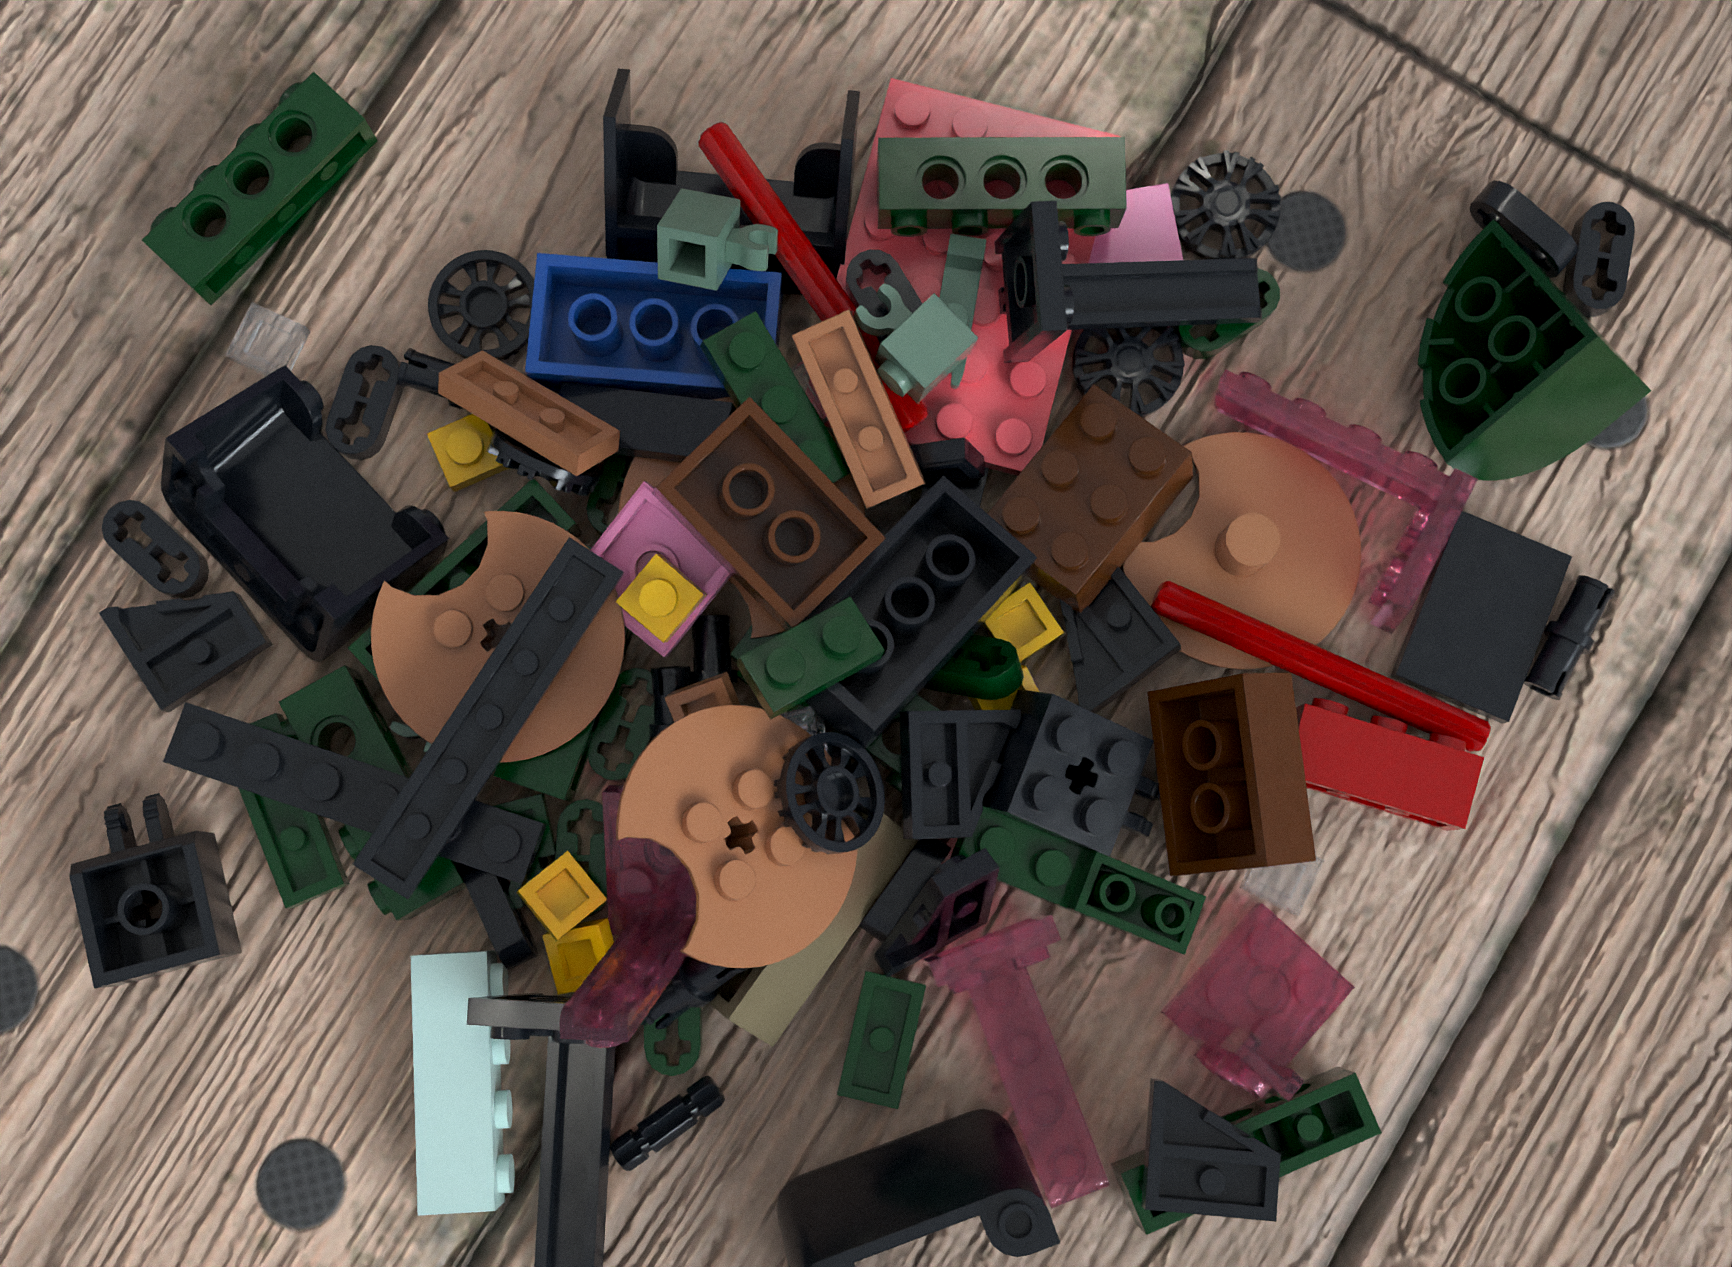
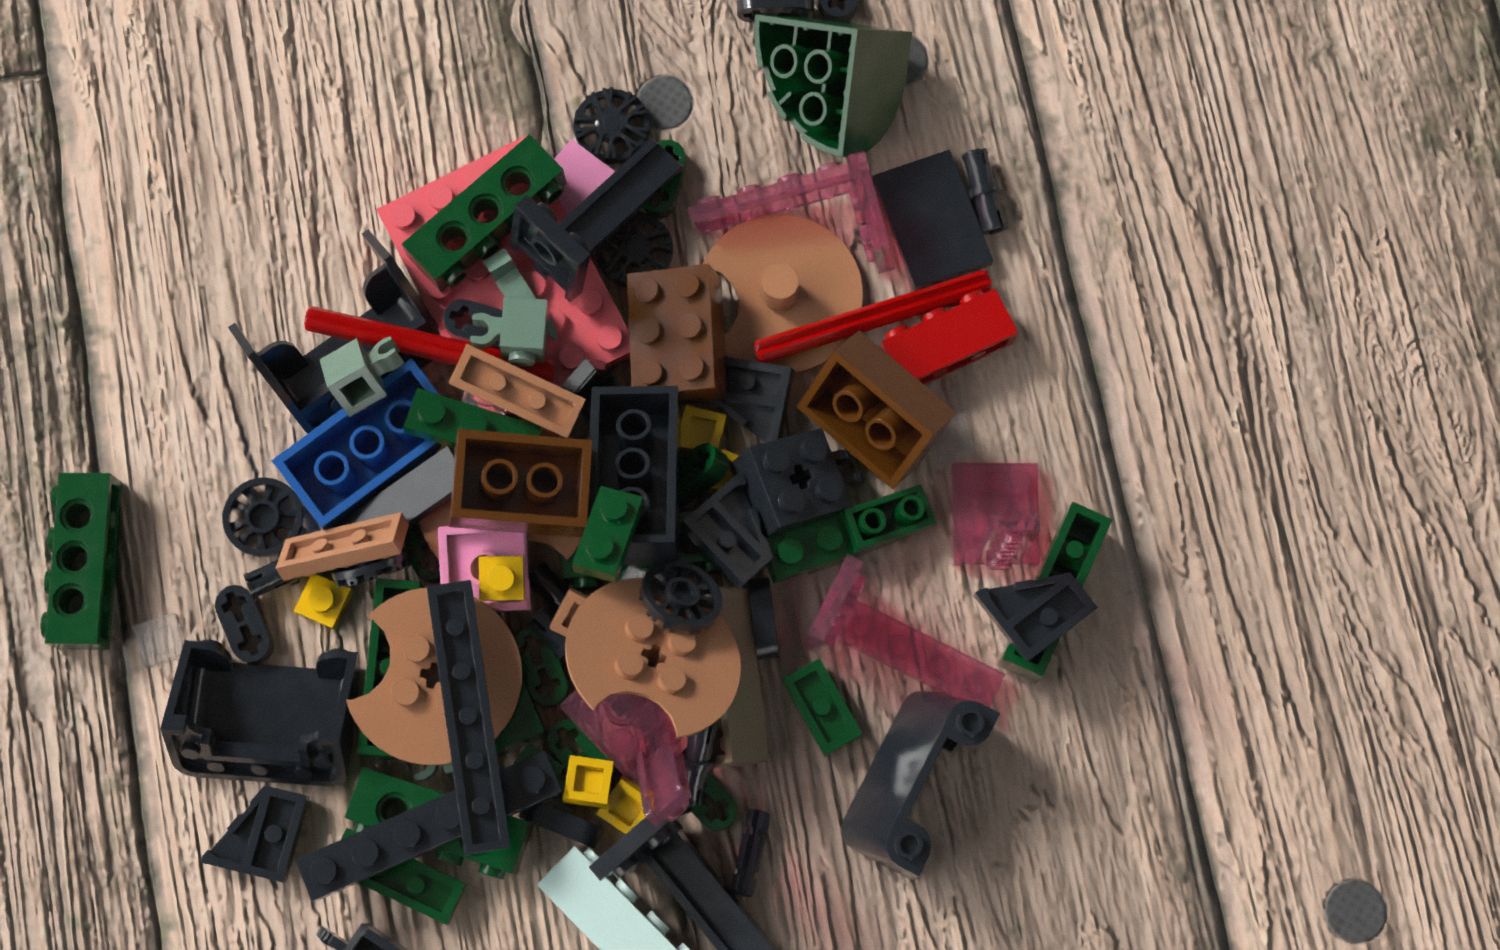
camera: 35 degrees left, 5 degrees down
(146, 559) = (198, 813): black beam -> none
(946, 909) = (794, 610): black wing -> none

